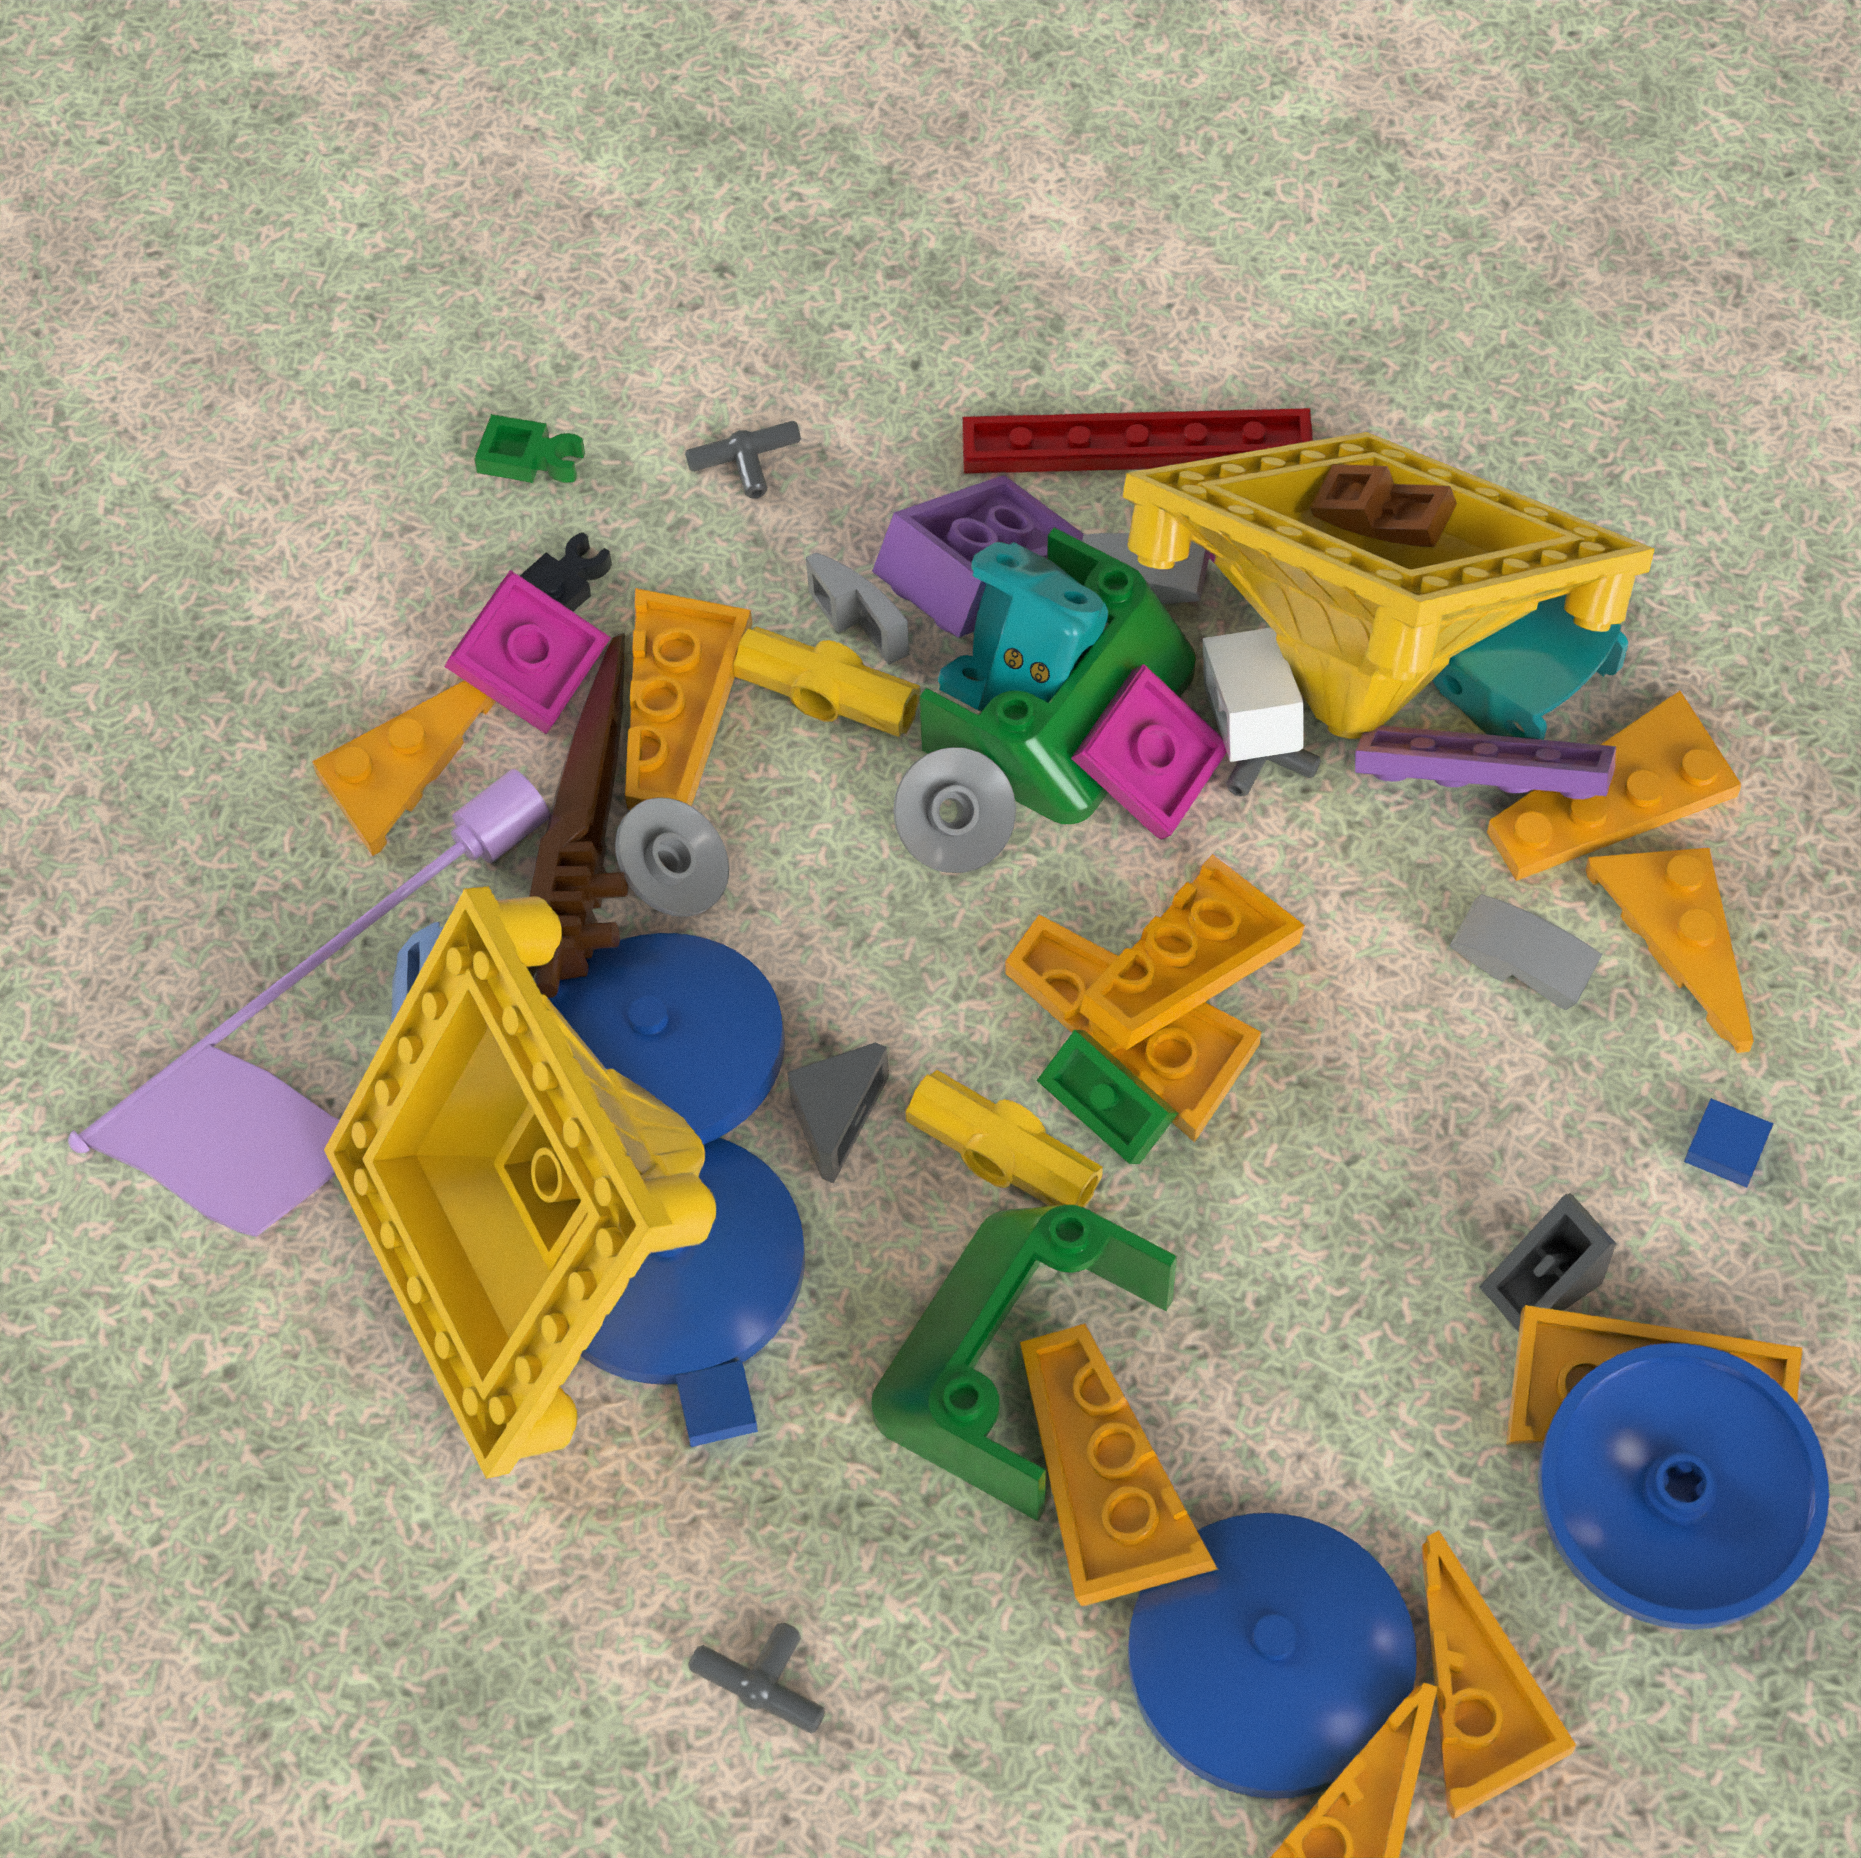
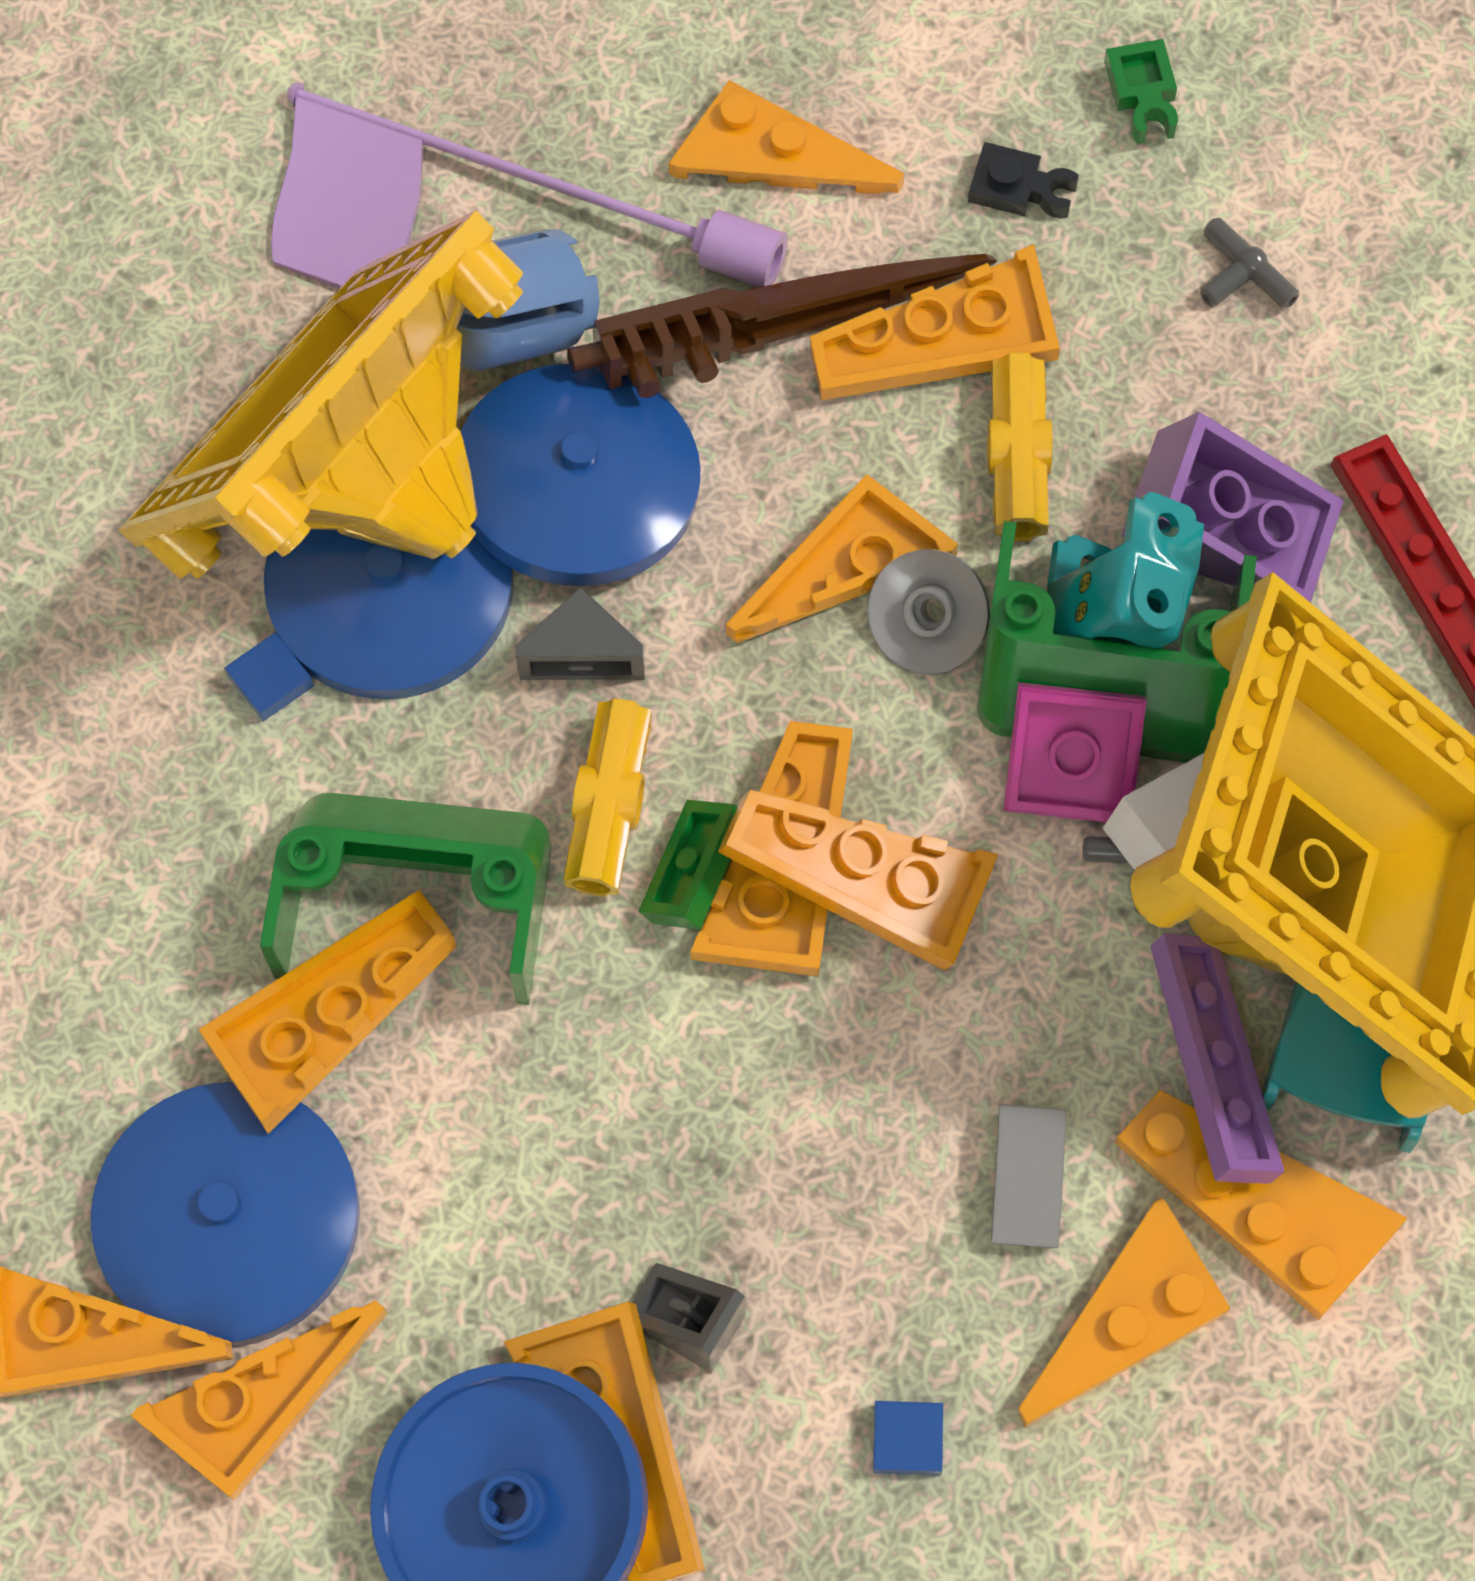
camera: 65 degrees right, 10 degrees up
(527, 652) = (921, 189): dark pink plate -> none
(686, 845) = (786, 424): light grey dish -> none
(759, 1686) = (34, 817): dark grey piece -> none
(851, 600) = (1113, 430): light grey slope -> none
(860, 856) = (838, 559): none -> light orange wing
(1373, 506) = (1412, 835): dark orange slope -> none

